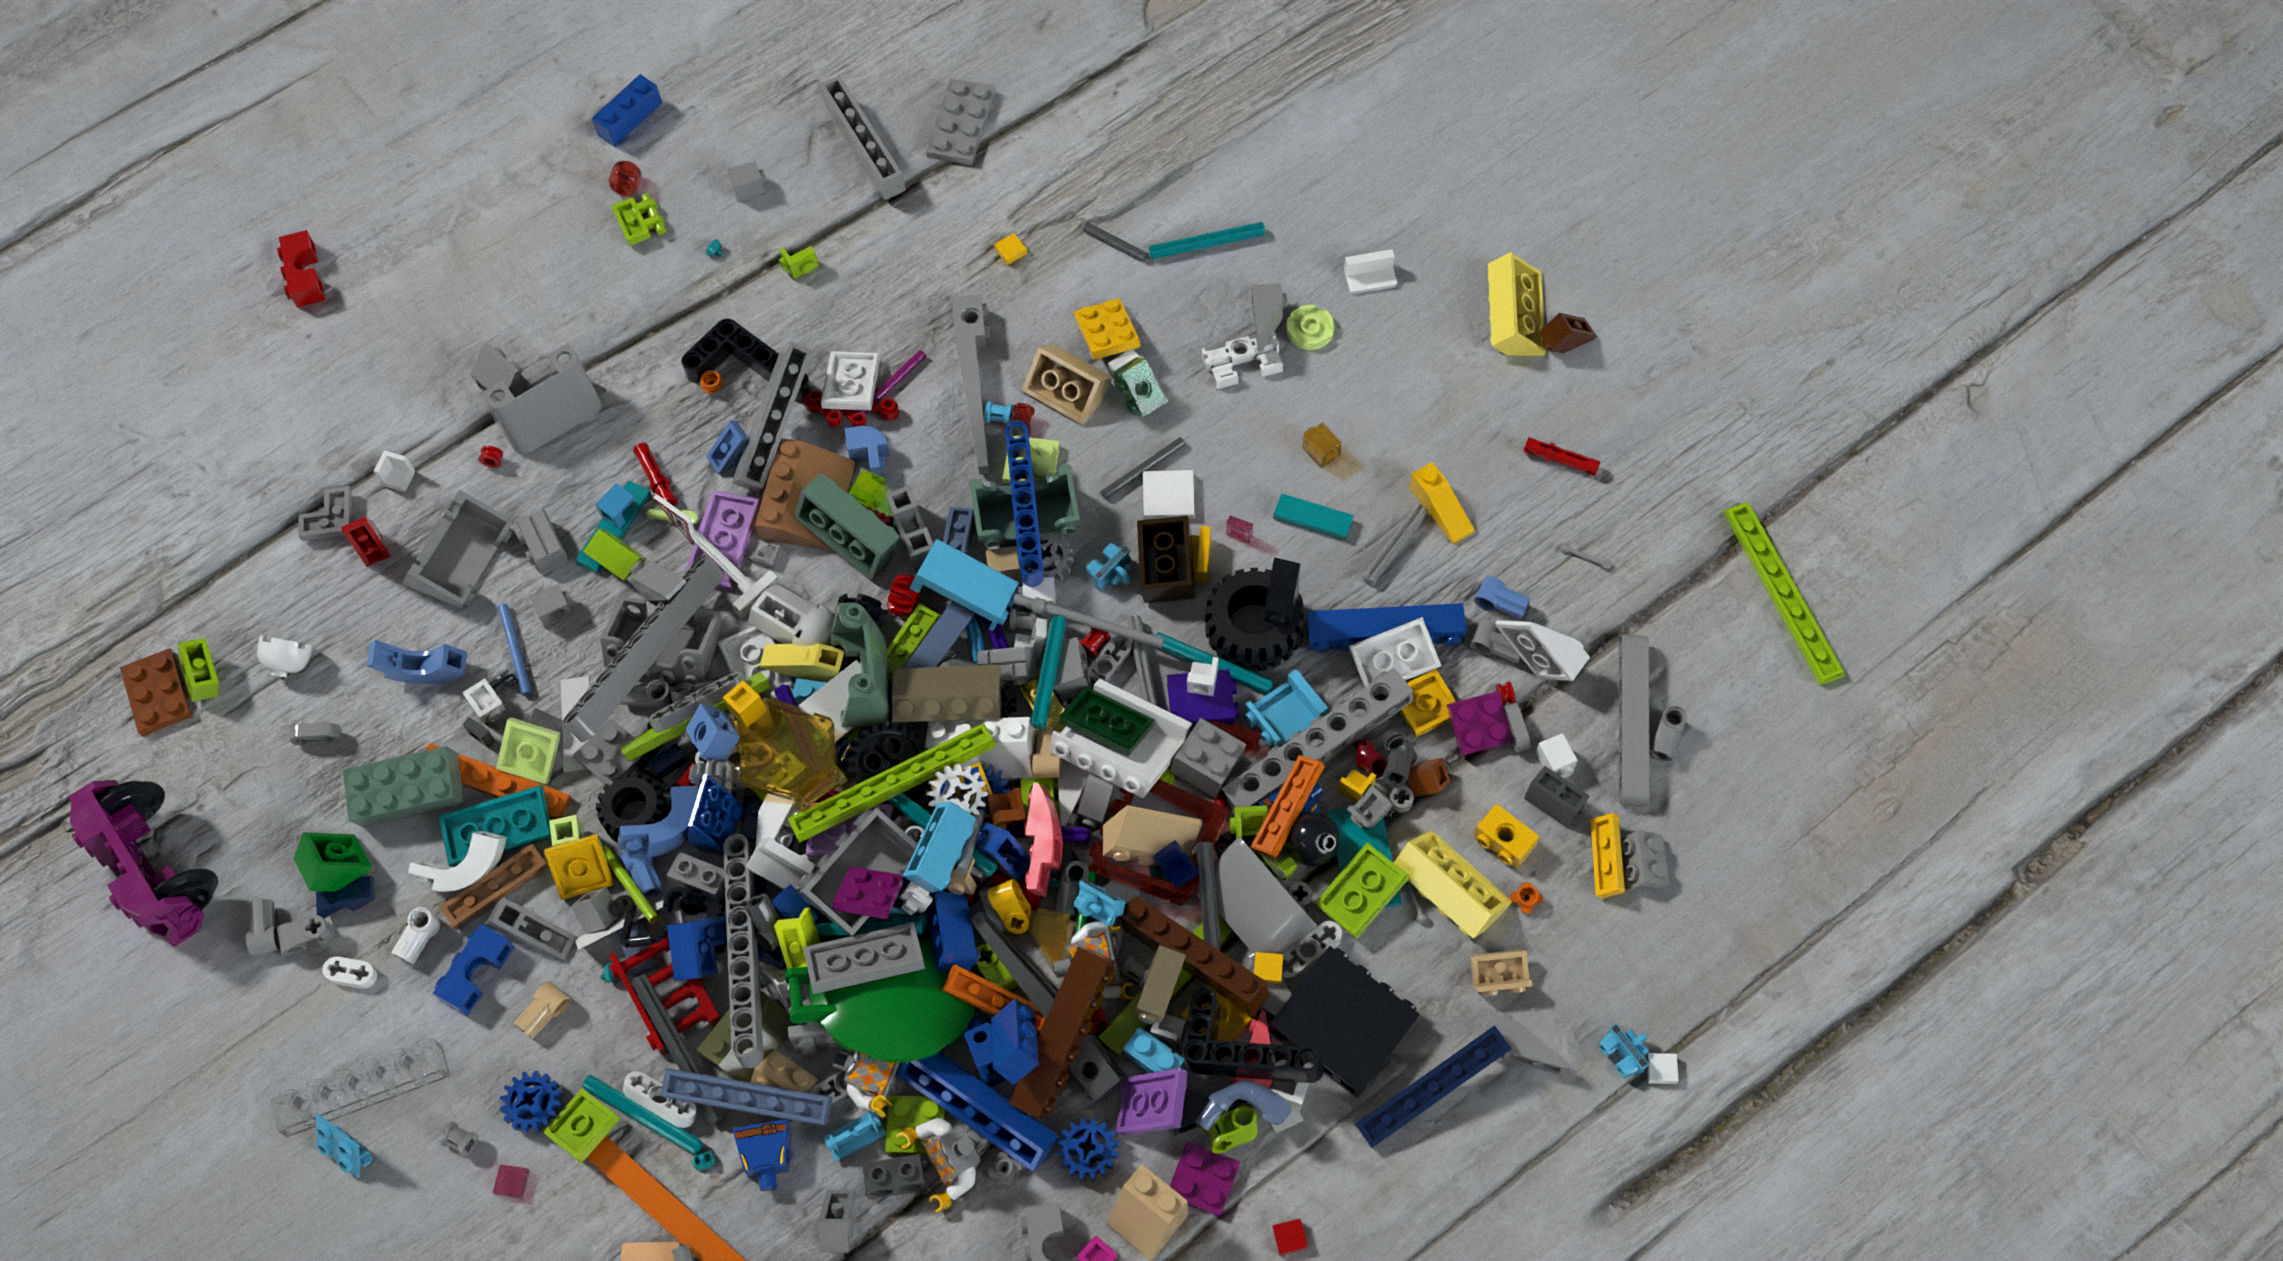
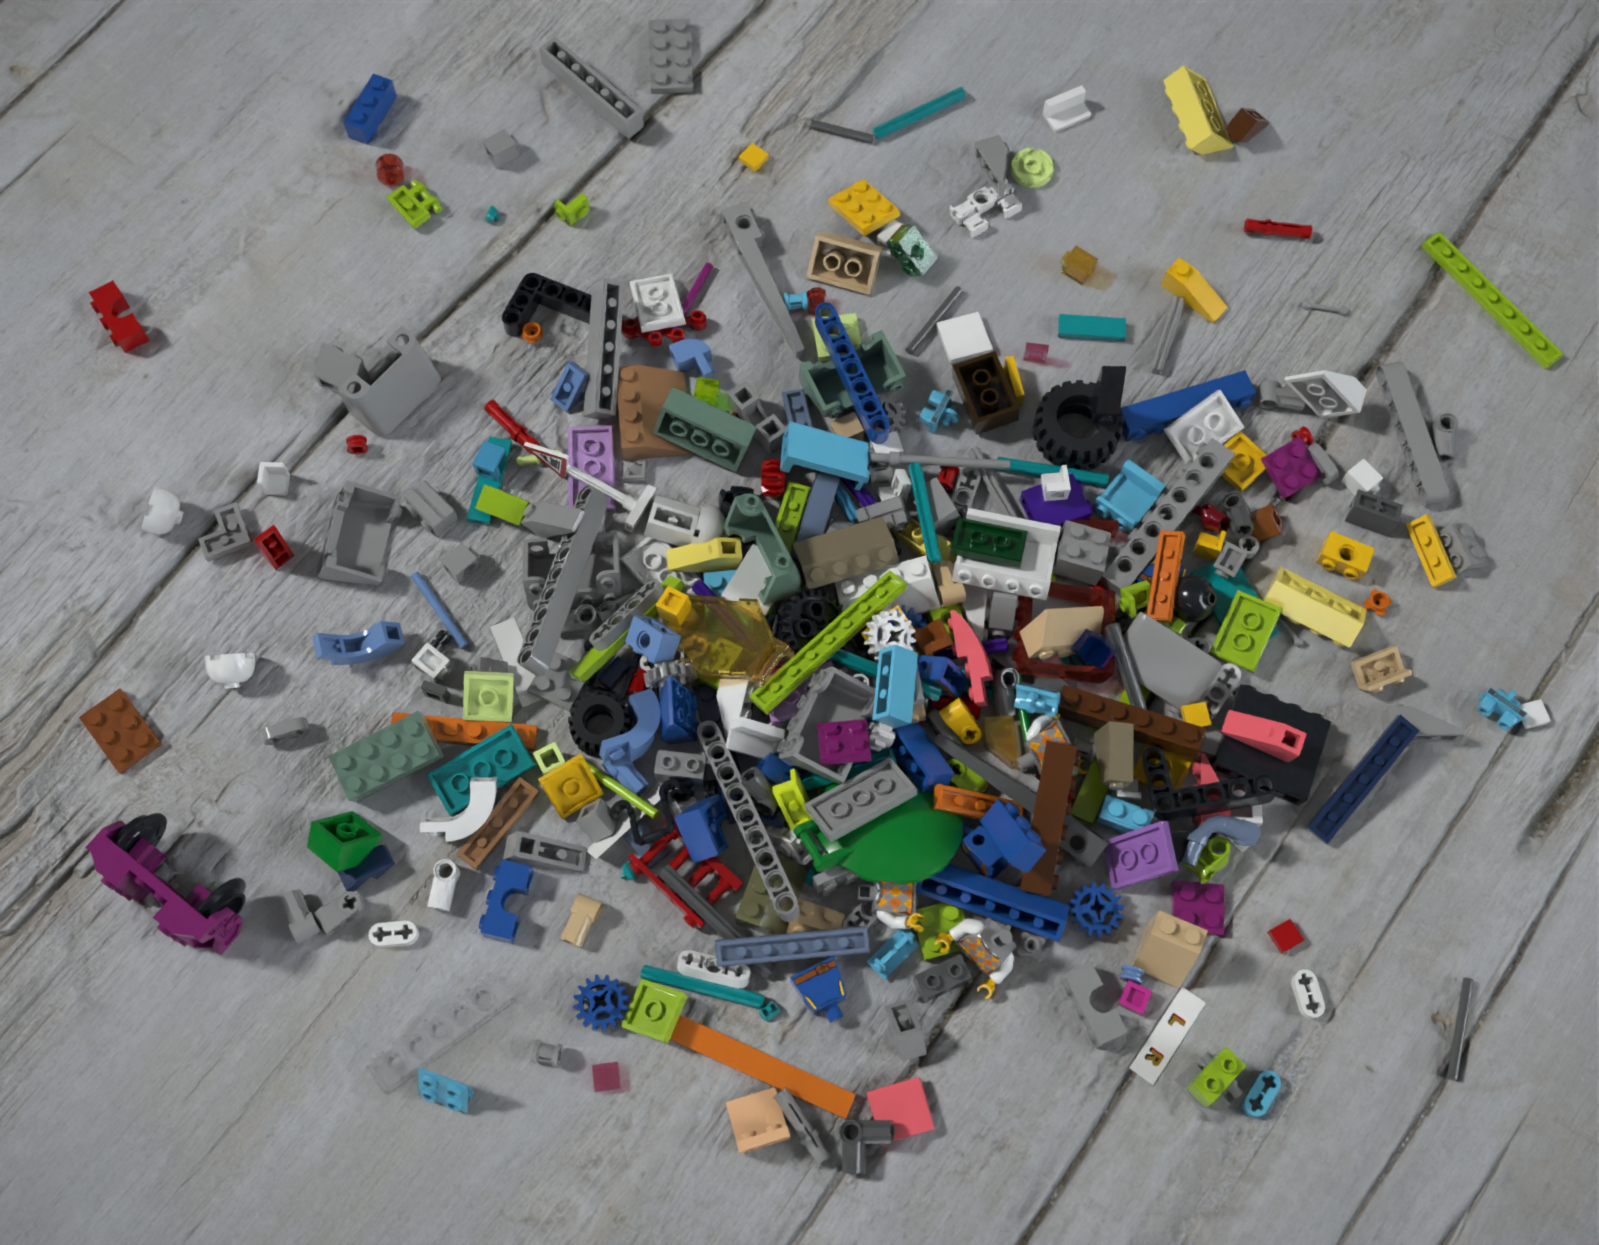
camera: 20 degrees left, 5 degrees up
(198, 669) = (156, 700): lime brick -> none
(271, 479) = (162, 512): none -> white cylinder
(1102, 1230) = (1132, 973): none -> medium blue bush
(1331, 1006) = (1265, 735): none -> coral slope
(1495, 595) = (1266, 358): medium blue piece -> none

